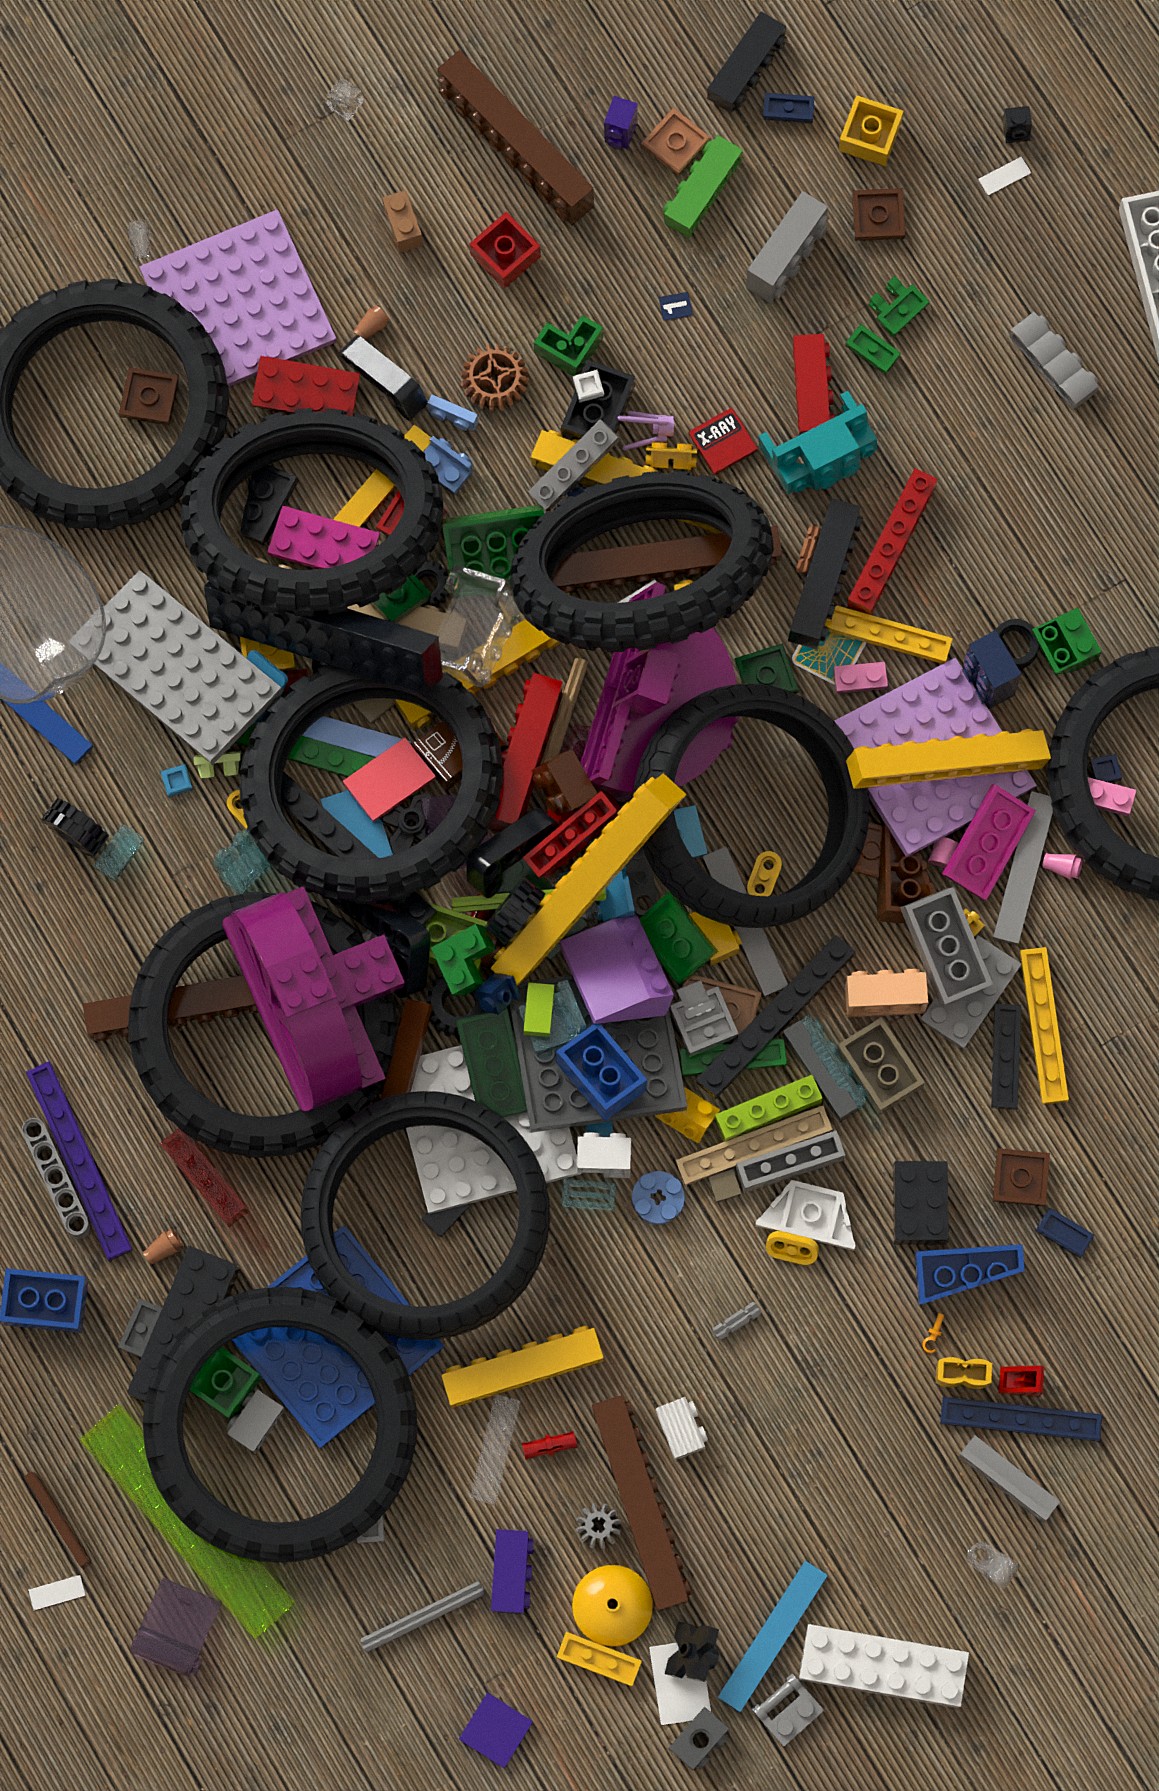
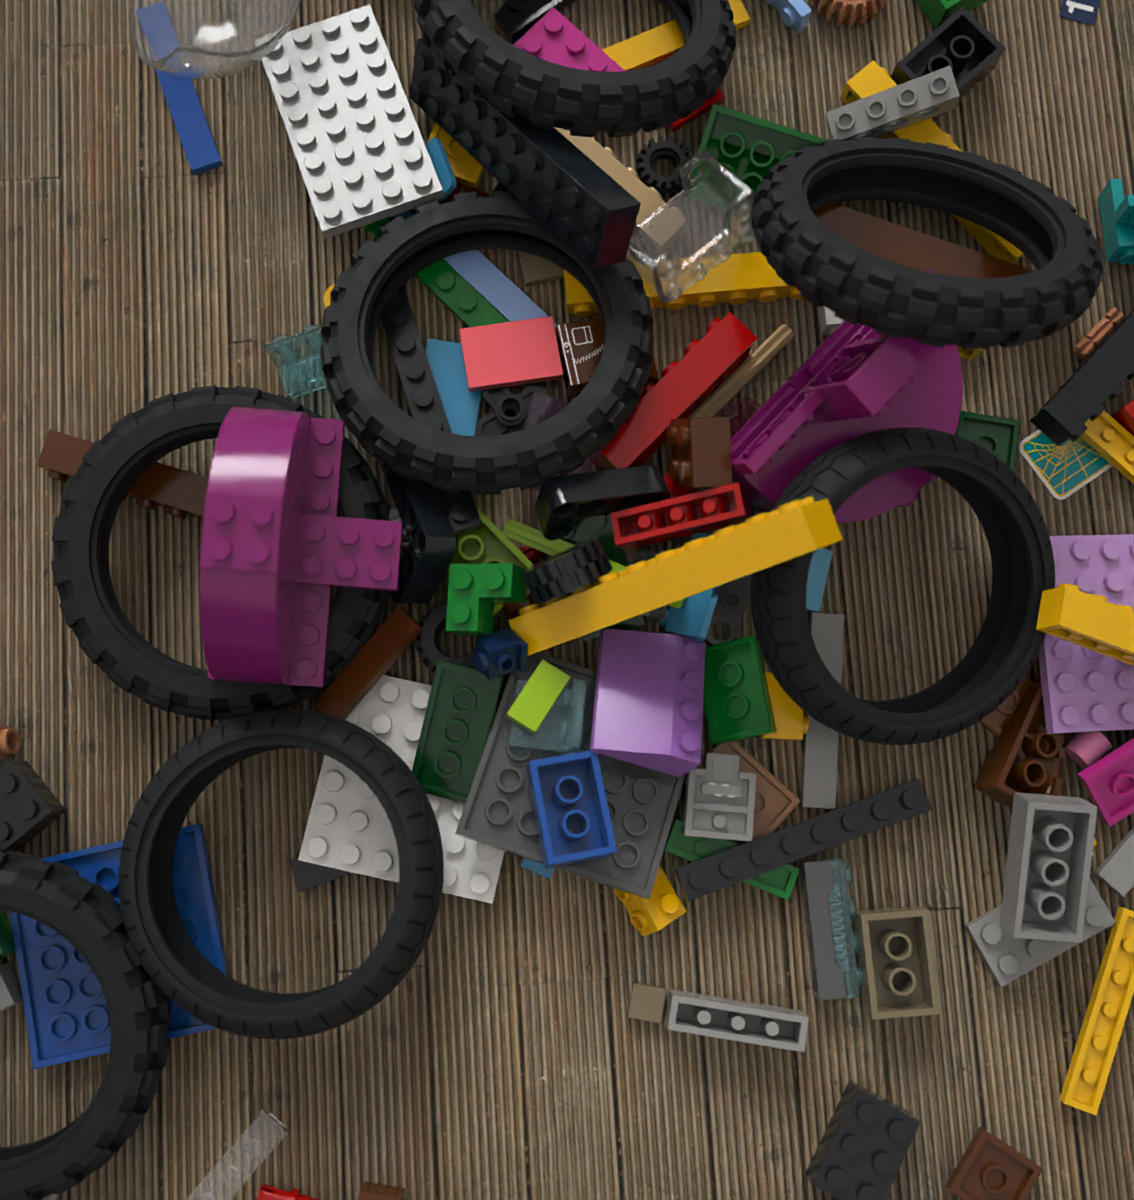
camera: 25 degrees right, 5 degrees up
(75, 827) = (145, 234): black bush -> none
(119, 853) = (184, 288): clear light blue plate -> none
(176, 780) = (289, 243): dark azure tile -> none
(204, 1177) = (74, 694): clear red brick -> none
(230, 763) = (327, 246): yellowish green hips -> none
(403, 600) = (626, 157): dark green plate -> none
(450, 467) = (753, 55): medium blue bracket -> none
(522, 1367) = (308, 1096): yellow brick -> none
(586, 1204) = (513, 945): clear light blue tile -> none
(588, 386) = (950, 33): white tile -> none
(604, 1155) = (526, 904): white brick -> none
(649, 1185) = (584, 976): medium blue plate -> none
(661, 425) = (1003, 122): lavender plant -> none
(661, 454) = (989, 147): yellow hinge -> none
(722, 441) = (1064, 168): red tile -> none
(736, 1321) = (579, 1171): light grey axle -> none
(753, 1144) = (704, 974): tan plate -> none
(762, 876) = (868, 671): yellow plate -> none
(768, 1108) = (742, 942): lime brick -> none
(791, 1248) = (687, 1120): yellow plate -> none
(810, 1213) = (727, 1091): white wing -> none
(860, 677) = (1087, 501): bright pink plate -> none
(886, 993) = (947, 880): light nougat brick -> none
(1005, 1056) = (1045, 1023): black plate -> none

